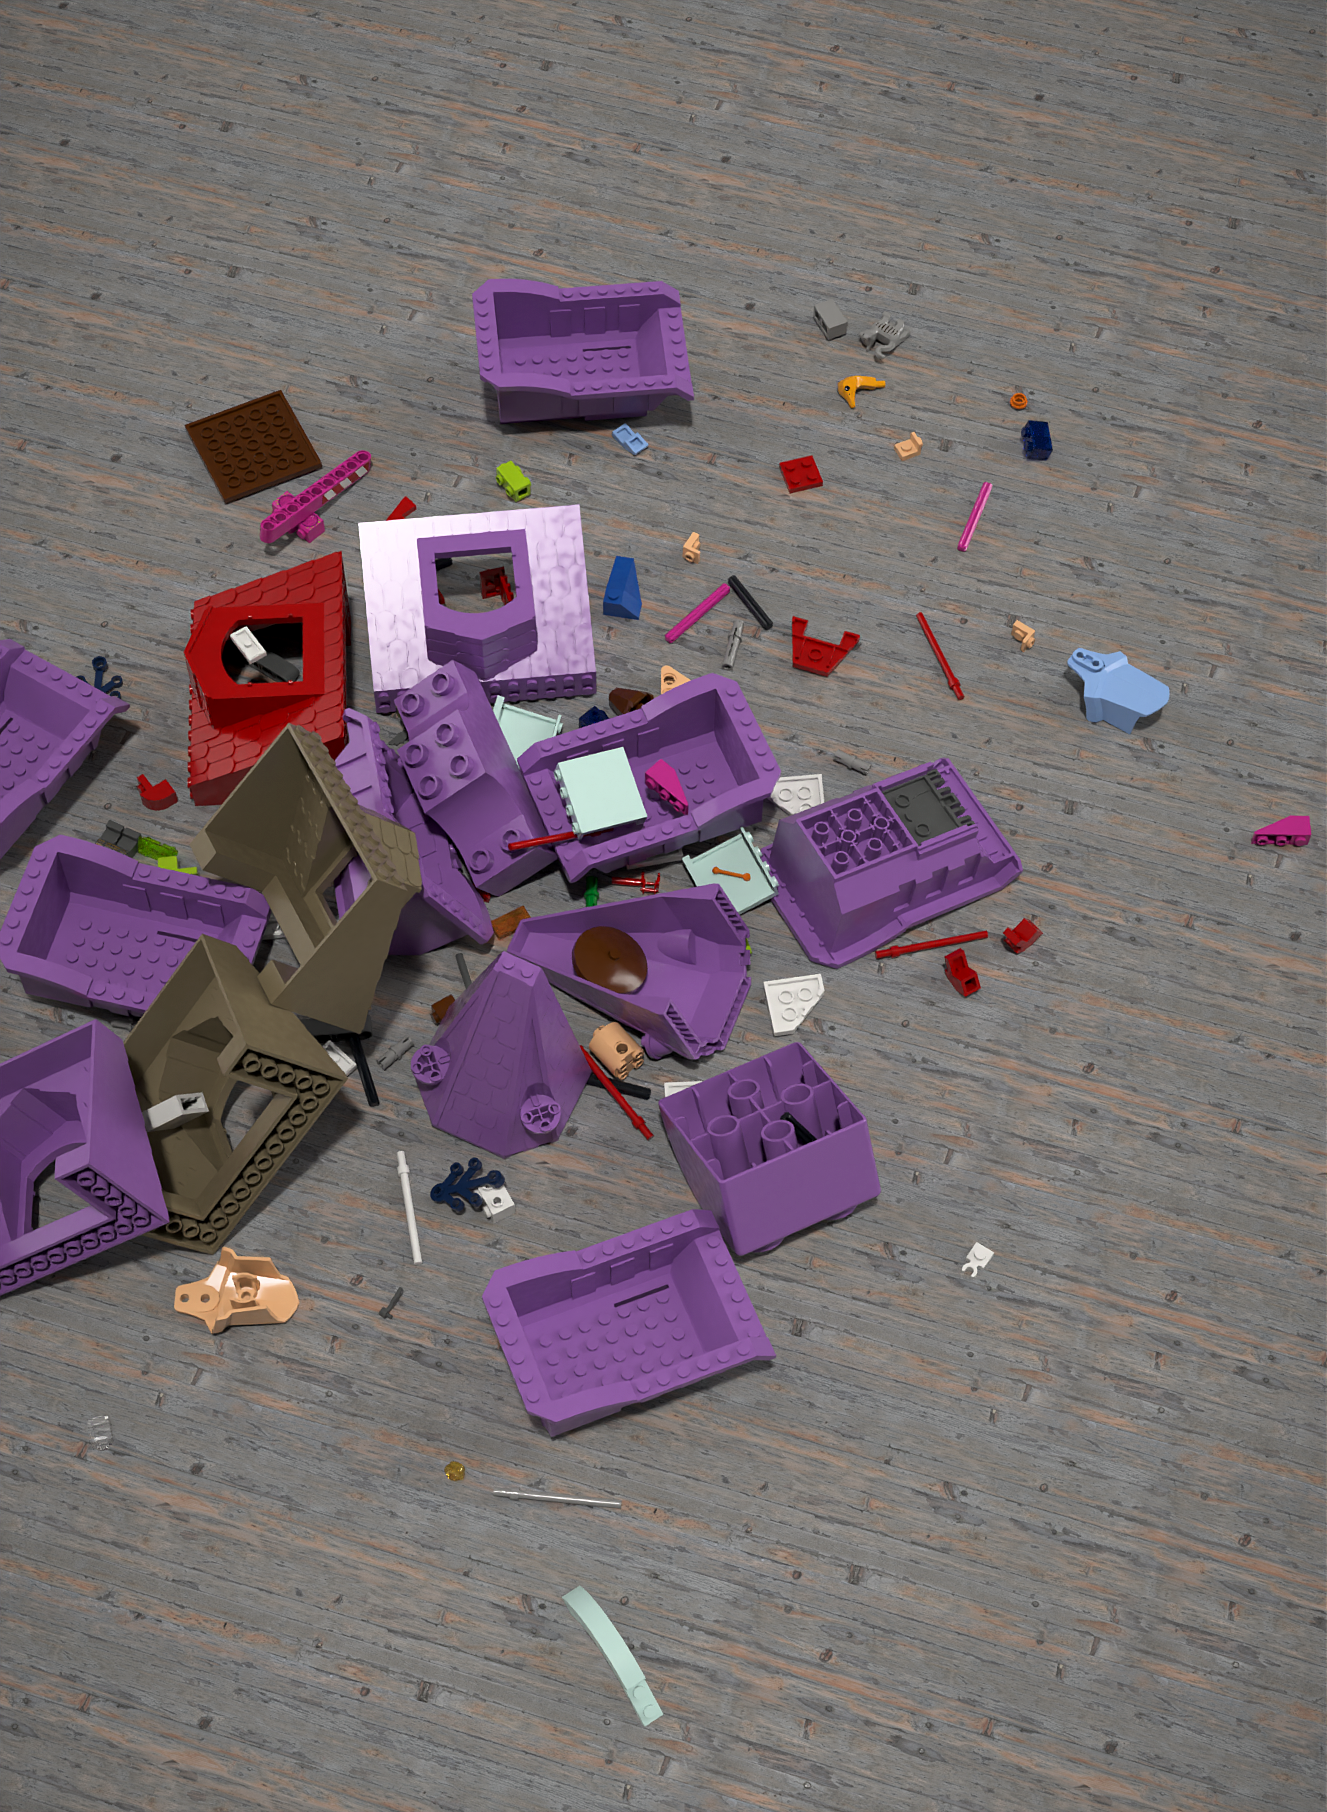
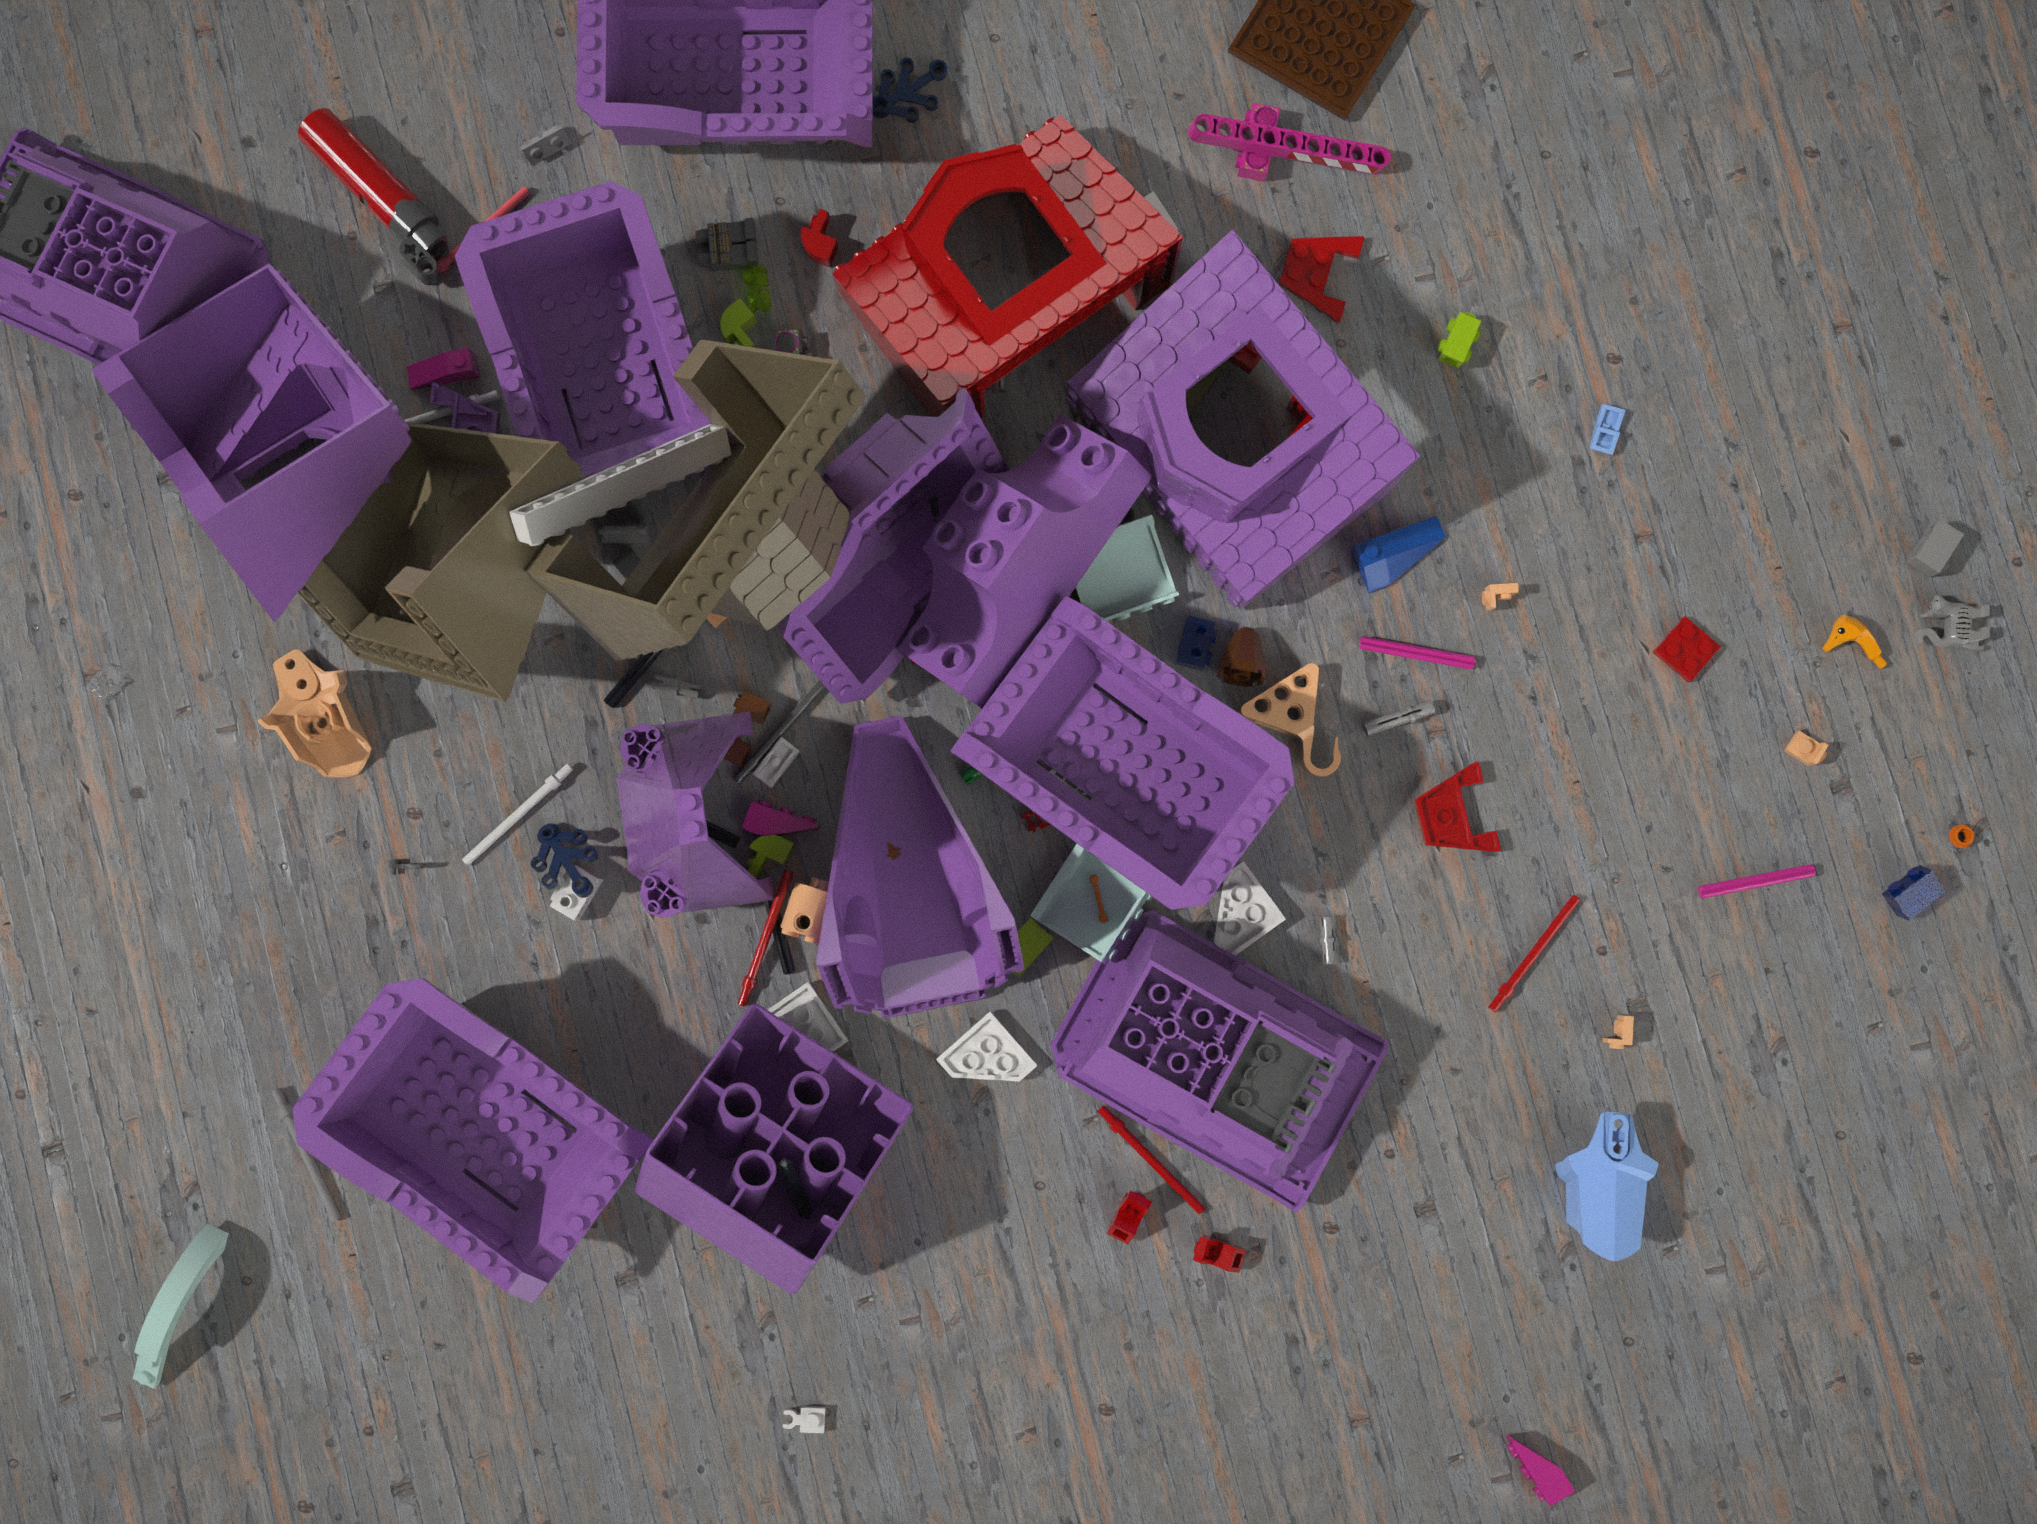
camera: 60 degrees right, 25 degrees up
(174, 1111) = (427, 529): white brick -> none
(248, 645) = (992, 223): white plate -> none
(252, 933) = (619, 484): none -> white brick
(454, 1471) = (271, 1040): clear yellow plate -> none
(507, 923) = (898, 704): clear orange plate -> none
(551, 839) = (1028, 734): red bar -> none
(580, 349) = (1674, 299): medium lavender piece -> none
(600, 792) = (1064, 719): light aqua panel -> none
(610, 959) = (898, 843): reddish brown dish -> none
(665, 782) = (1140, 771): dark pink slope -> none
(750, 602) = (1469, 701): black axle -> none

